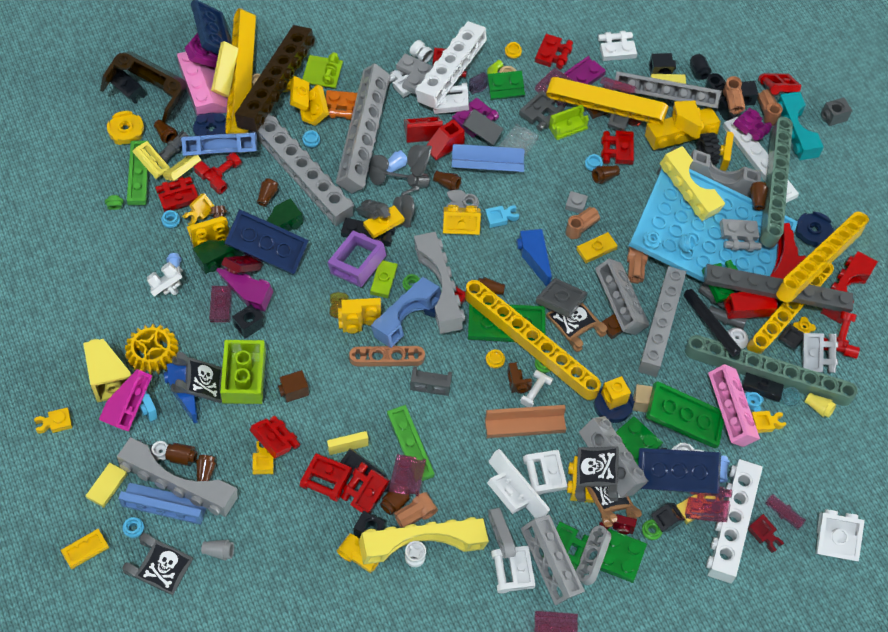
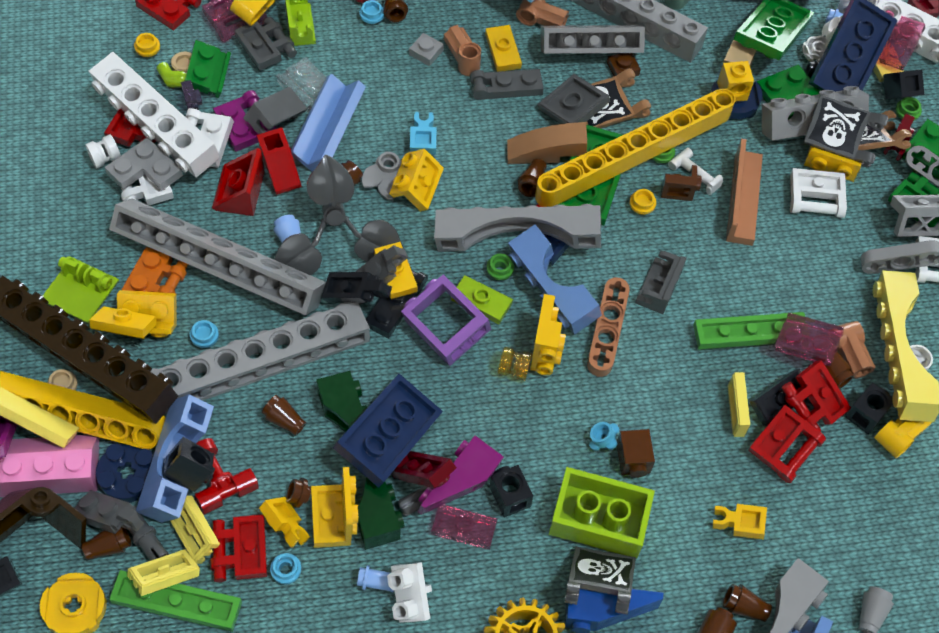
camera: 75 degrees left, 0 degrees up
(179, 123) = (108, 512): none -> dark grey hinge
(220, 145) = (189, 464): none -> black brick
(270, 436) = (714, 494): red plate -> none
(302, 364) = (601, 430): none -> medium azure plate
(358, 198) = (354, 287): none -> black hinge
(513, 488) = (836, 230): white bracket -> none
(519, 290) = (548, 143): none -> medium nougat slope
(535, 253) = (496, 112): blue slope -> none
(566, 257) = (506, 84): none -> dark grey plate

